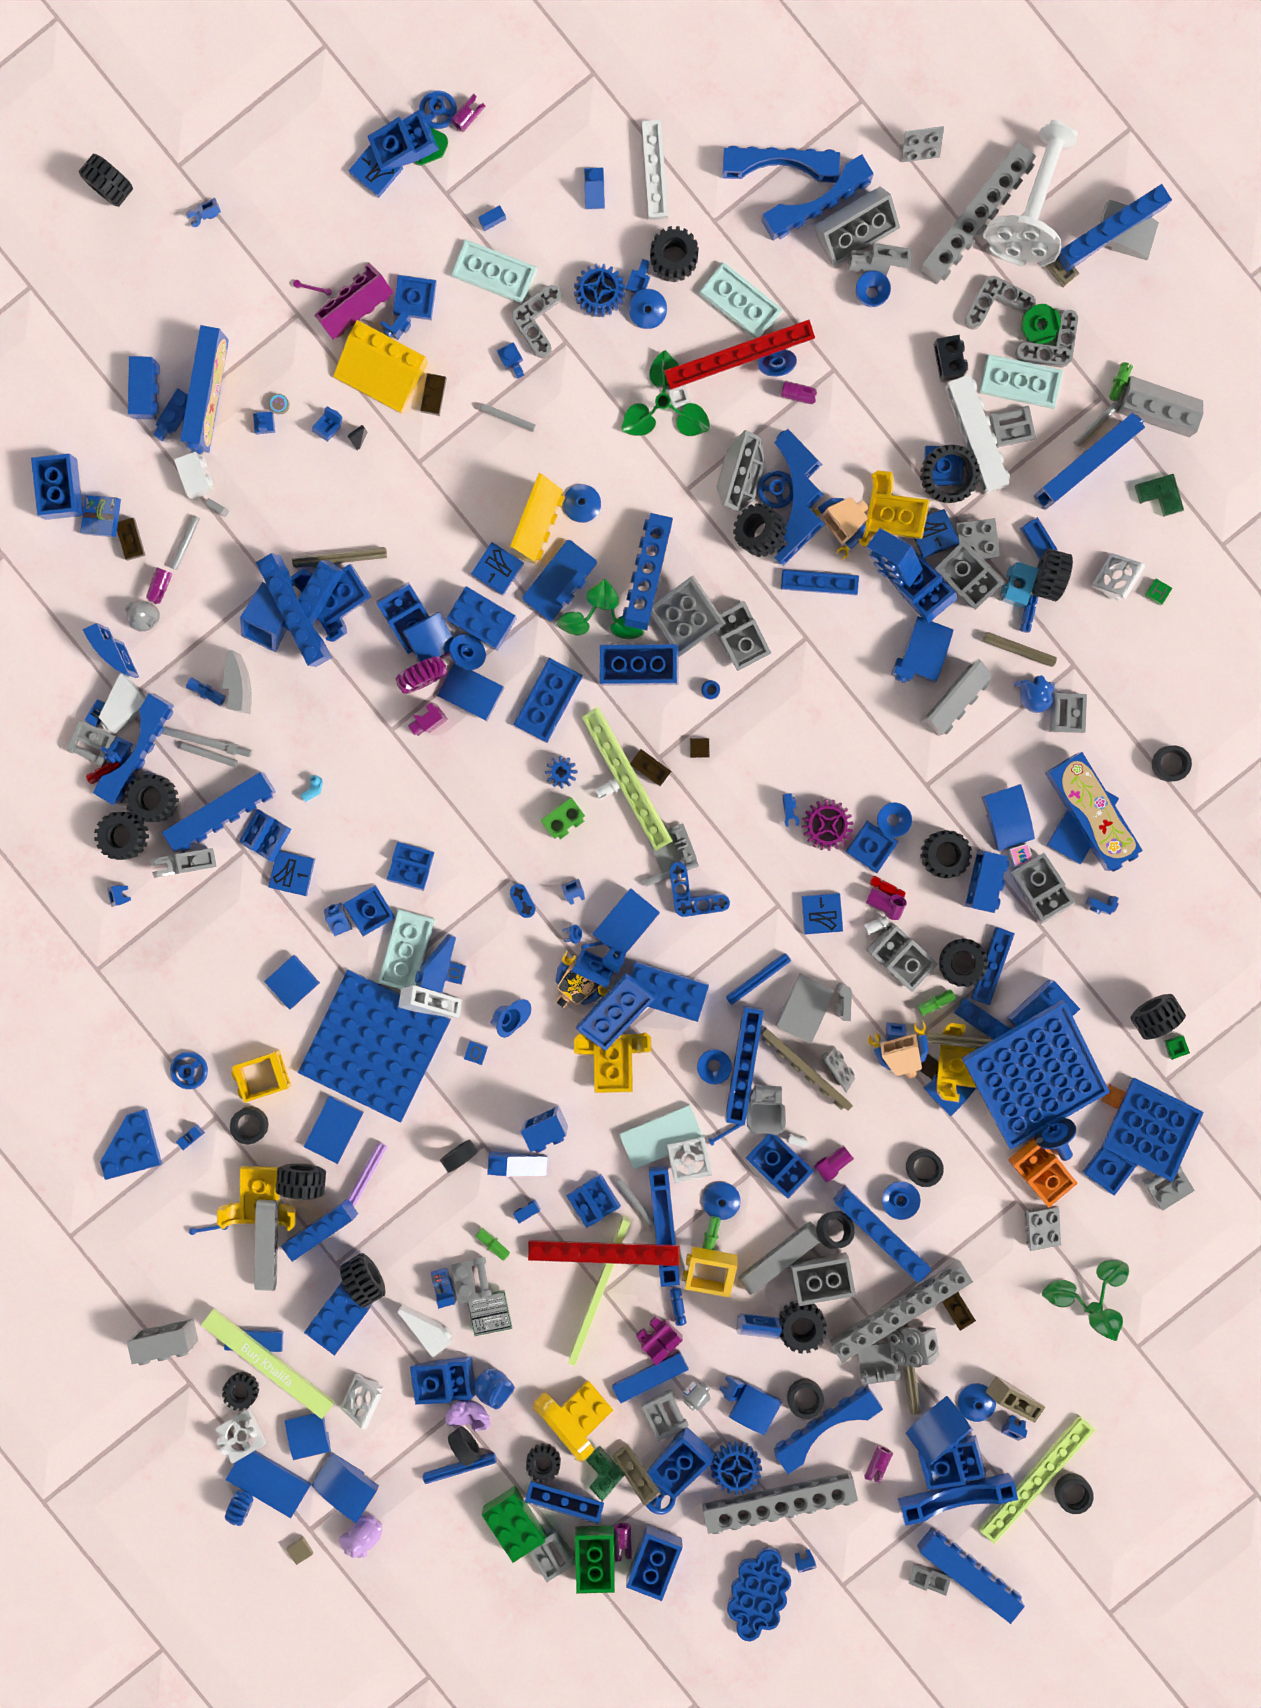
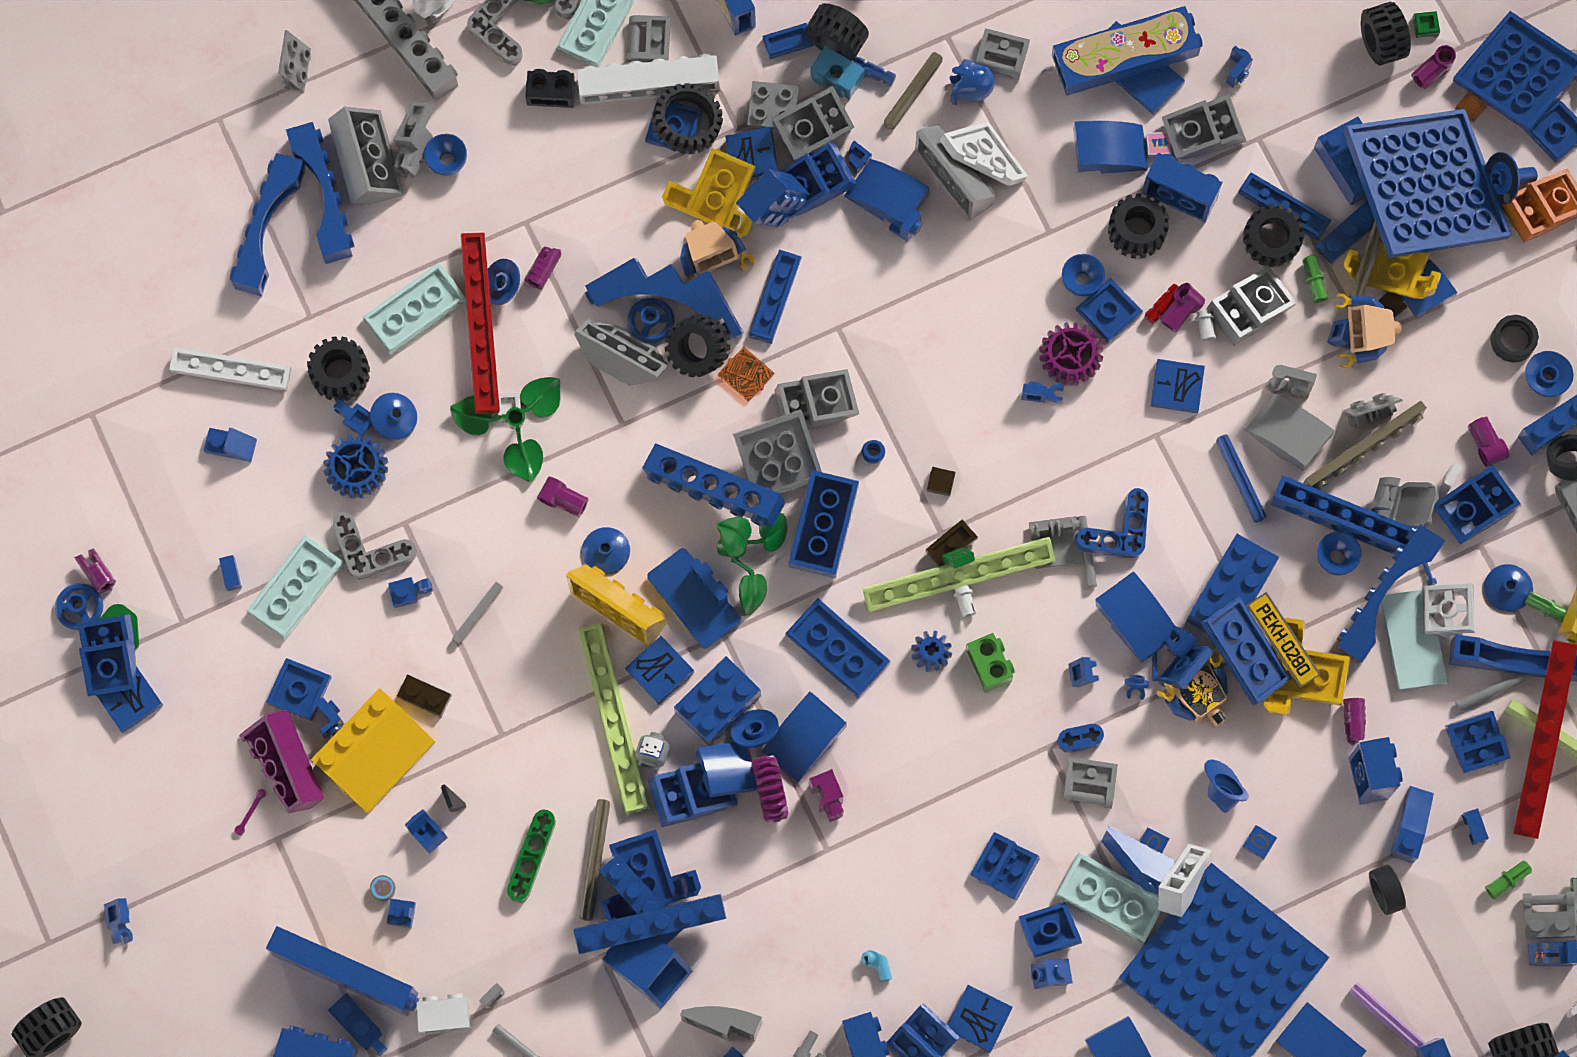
camera: 75 degrees left, 15 degrees down
(330, 511) = (535, 857): none -> green beam
(430, 578) = (652, 751): none -> head
(451, 543) = (613, 719): none -> yellowish green tile
(495, 915) = (1090, 774): none -> light grey plate
(586, 1105) = (1354, 719): none -> magenta hinge
(614, 454) = (556, 494): none -> magenta piece
(632, 1038) = (1283, 640): none -> tile
(637, 775) = (958, 557): none -> green tile
(725, 1129) = (1361, 636): none -> blue arch
(750, 575) = (746, 374): none -> clear orange piece
(953, 619) = (858, 156): none -> blue tile
(978, 717) = (985, 152): none -> white plate
(1139, 1060) = (1434, 67): none -> magenta piece

